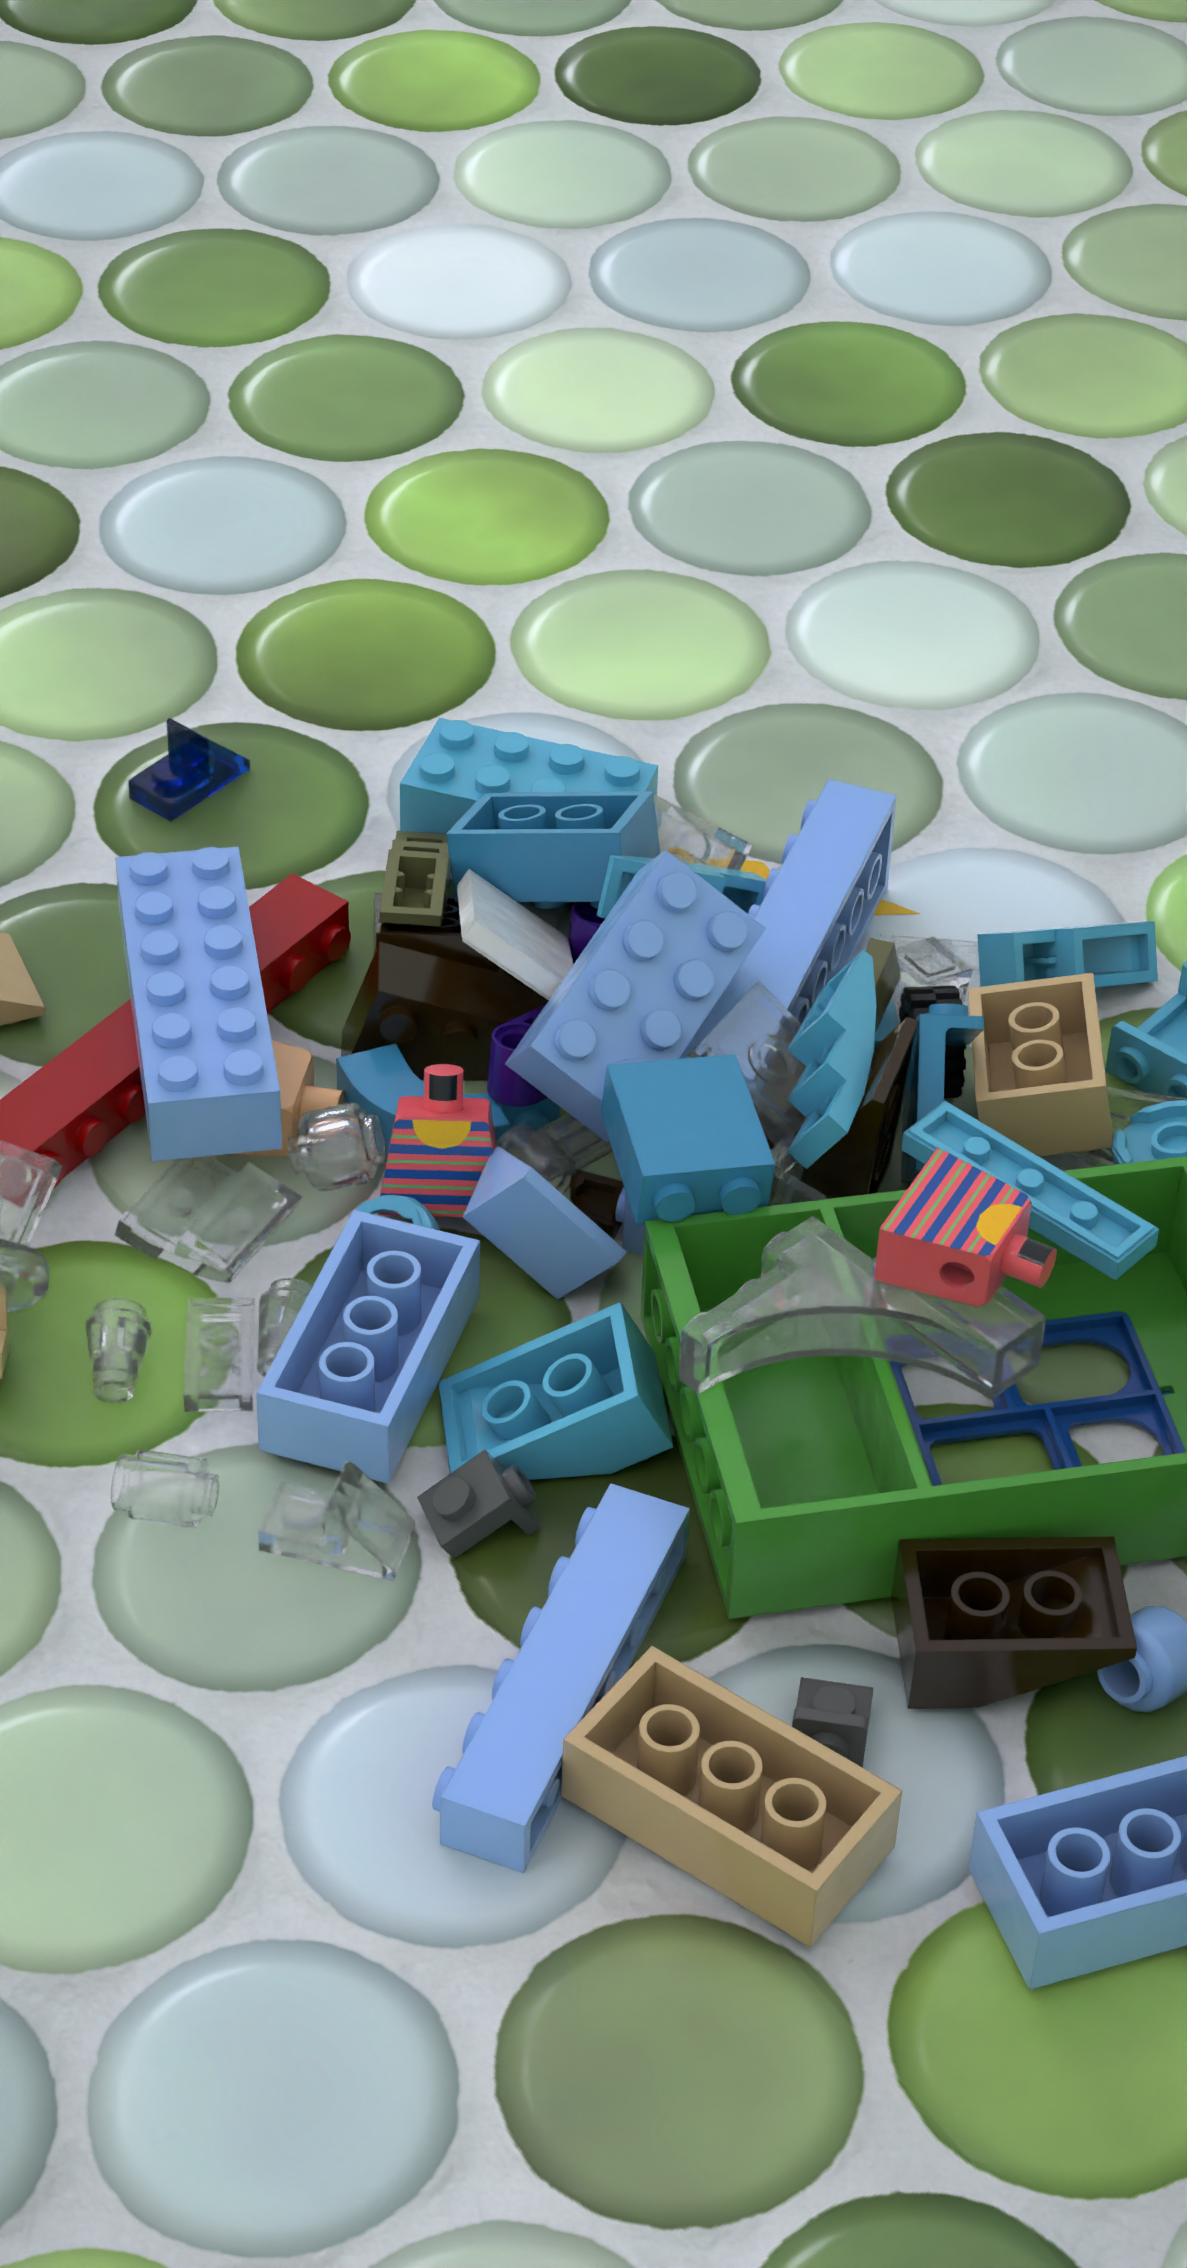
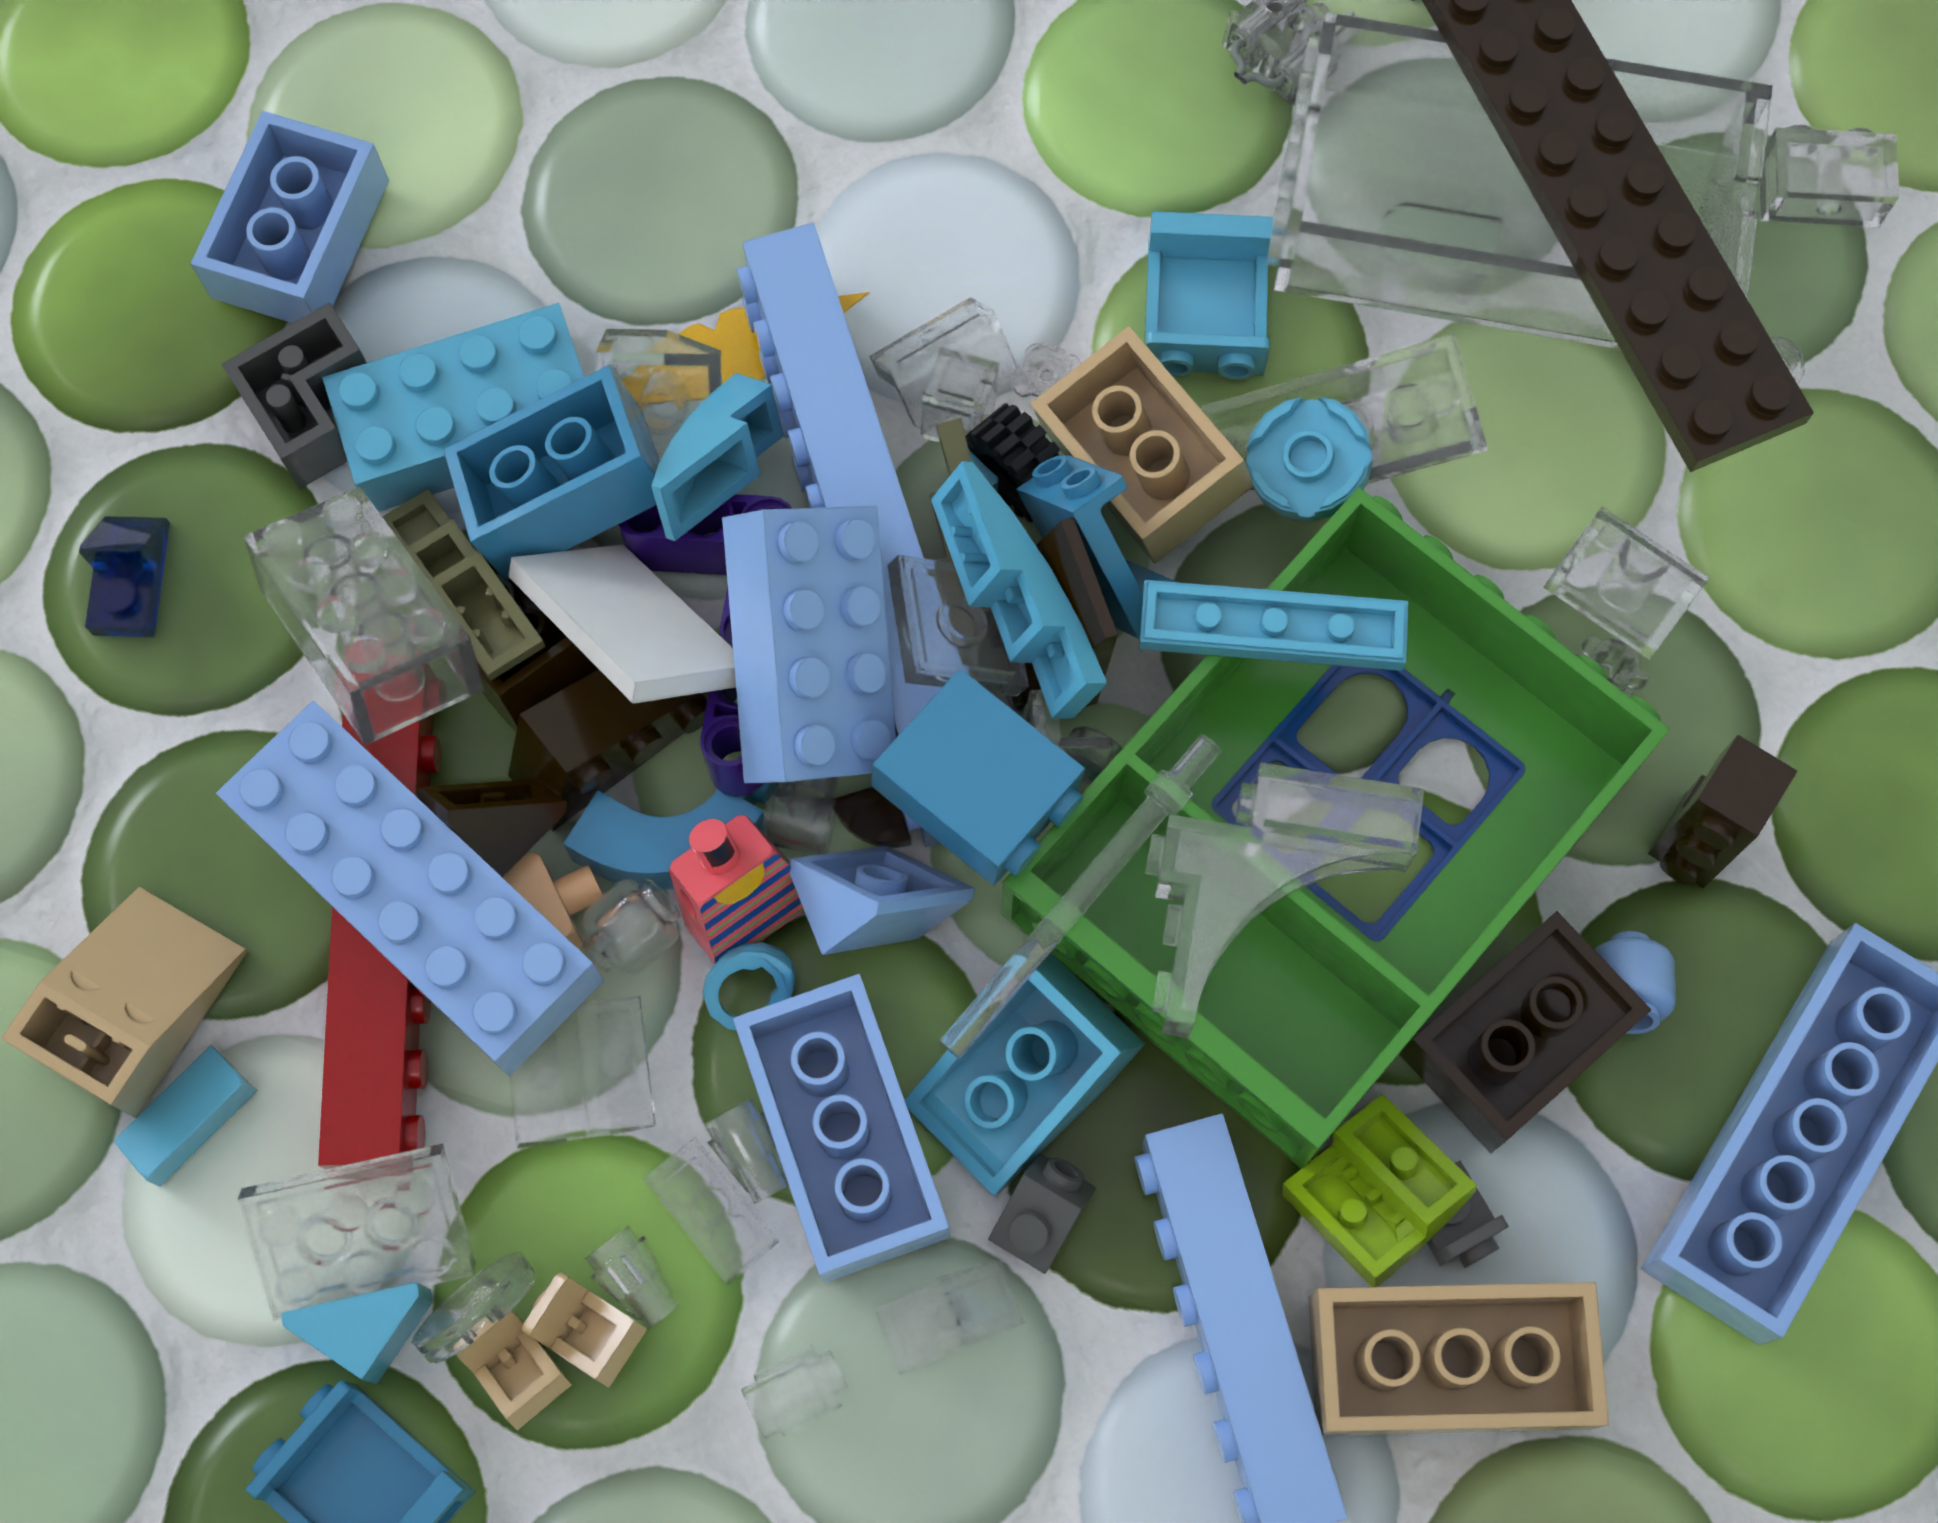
camera: 35 degrees left, 30 degrees up
(45, 1348) = (583, 1329): none -> tan bracket
(297, 1003) = (496, 817): none -> dark brown slope
(327, 845) = (364, 615): none -> clear brick
(401, 716) = (287, 392): none -> dark grey brick
(509, 640) = (290, 219): none -> light blue brick
(671, 1257) = (1165, 796): none -> clear bar
(786, 1659) = (1379, 1191): none -> lime slope
(960, 1235) = (1319, 766): coral torso -> none
(1110, 951) = (1047, 284): medium azure slope -> none

